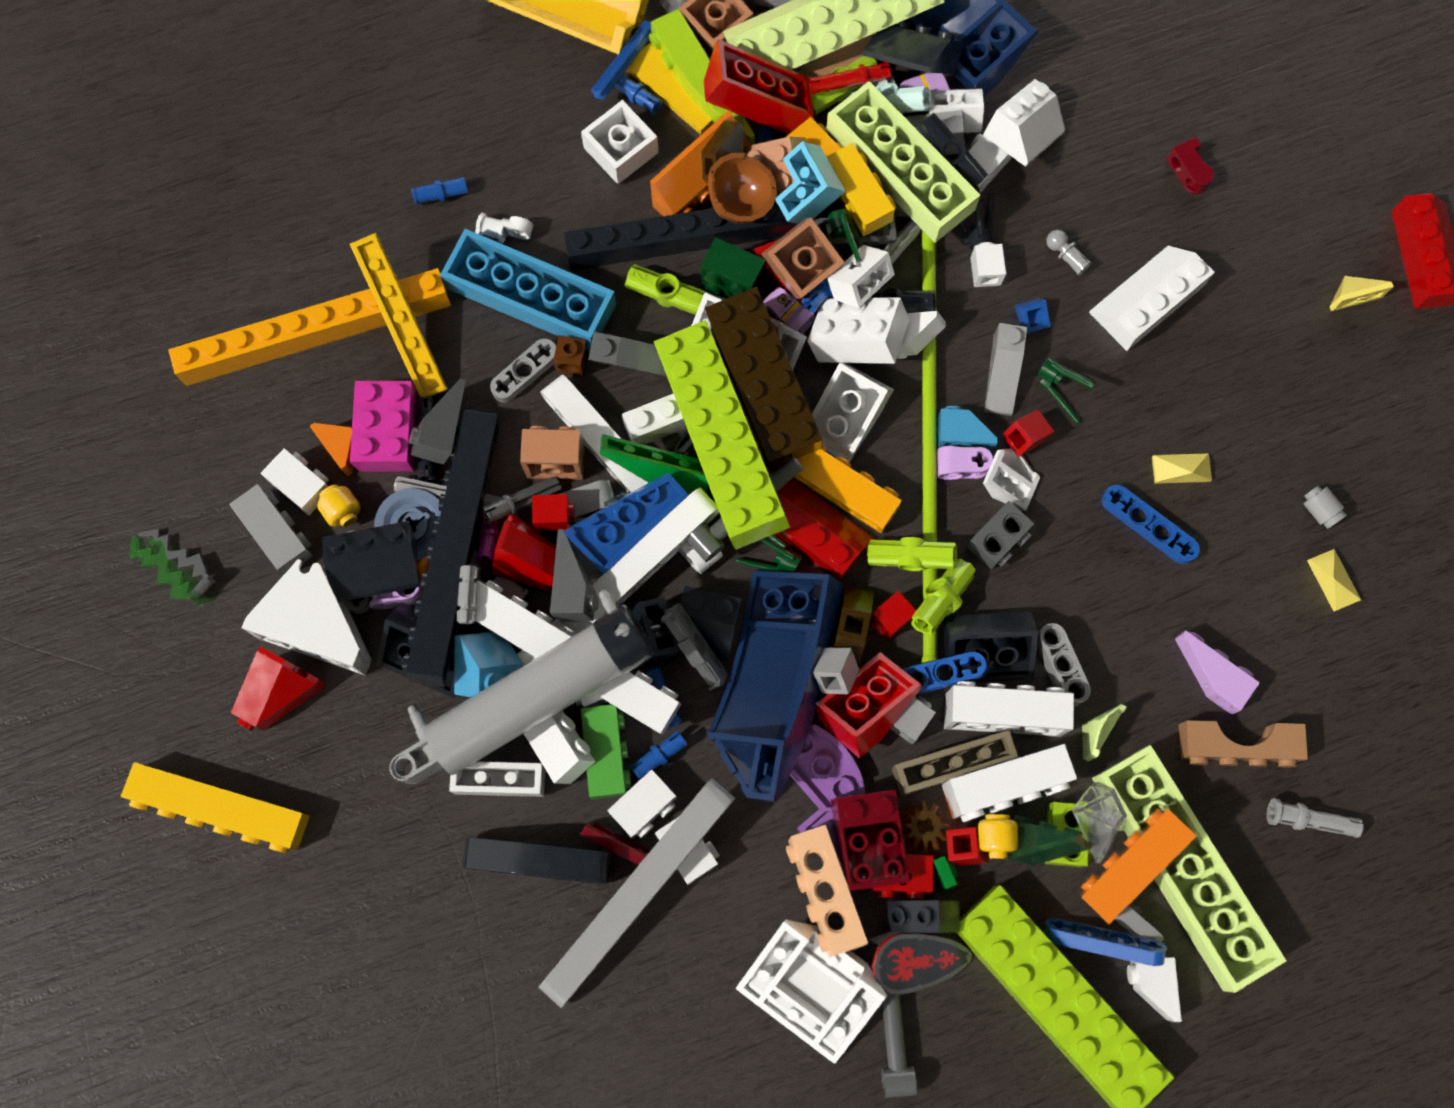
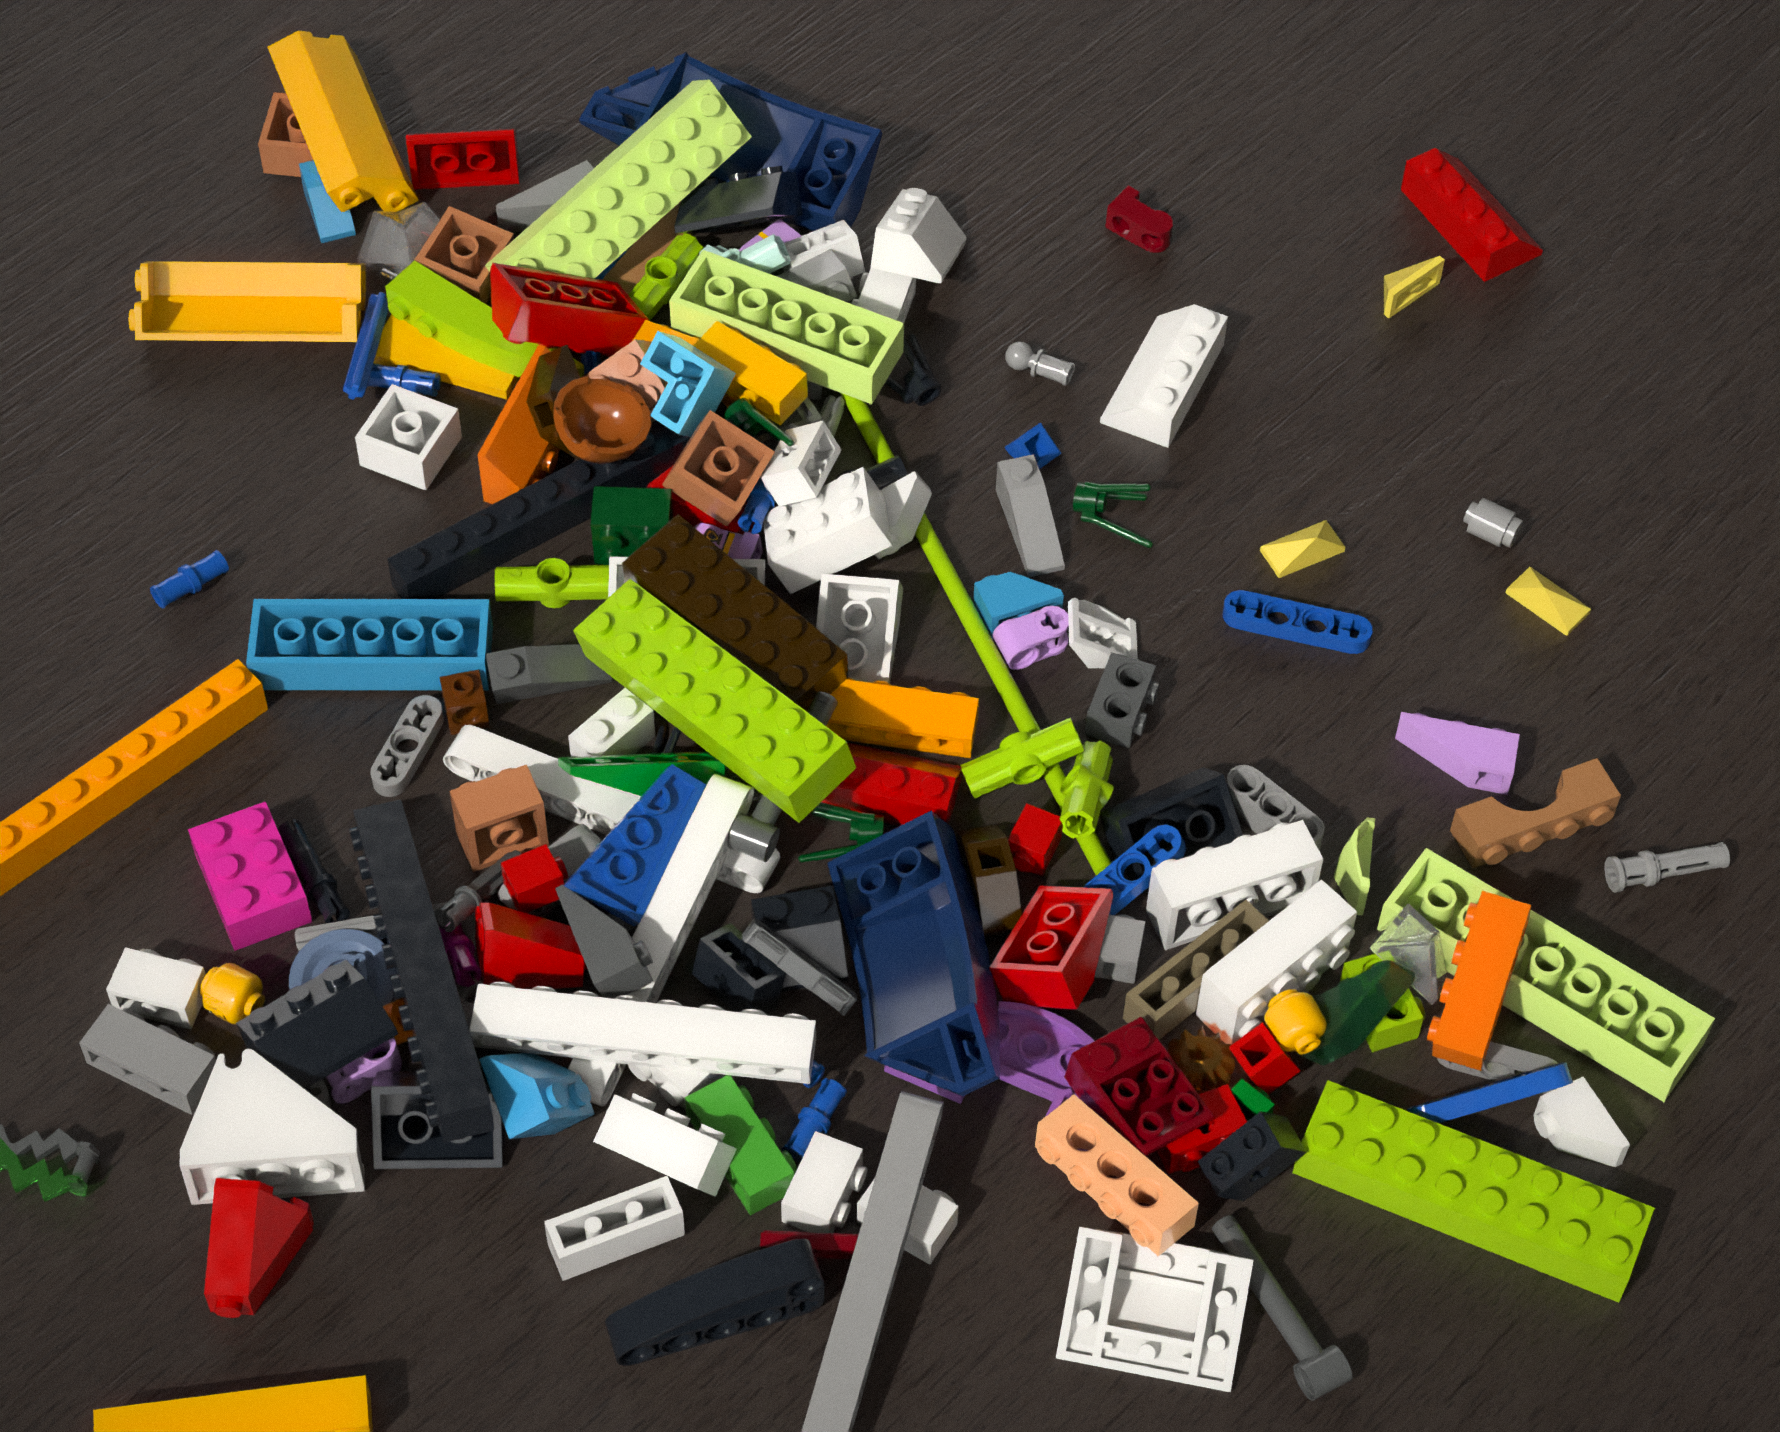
camera: 25 degrees left, 20 degrees down
(337, 442) = (191, 920): orange slope -> none
(398, 316) = (211, 730): yellow tile -> none
(437, 430) = (331, 848): dark grey slope -> none
(467, 594) = (474, 1002): light grey axle -> none
(499, 229) = (305, 586): white connector -> none
(526, 696) = (612, 1085): light grey piece -> none
(836, 671) = (996, 919): light grey brick -> none
(850, 78) = (671, 263): red pin -> none
(917, 961) = (1272, 1216): shield -> none
(940, 137) = (825, 279): black piece -> none
(988, 264) = (949, 411): white brick -> none
(1028, 433) = (1095, 573): red brick -> none

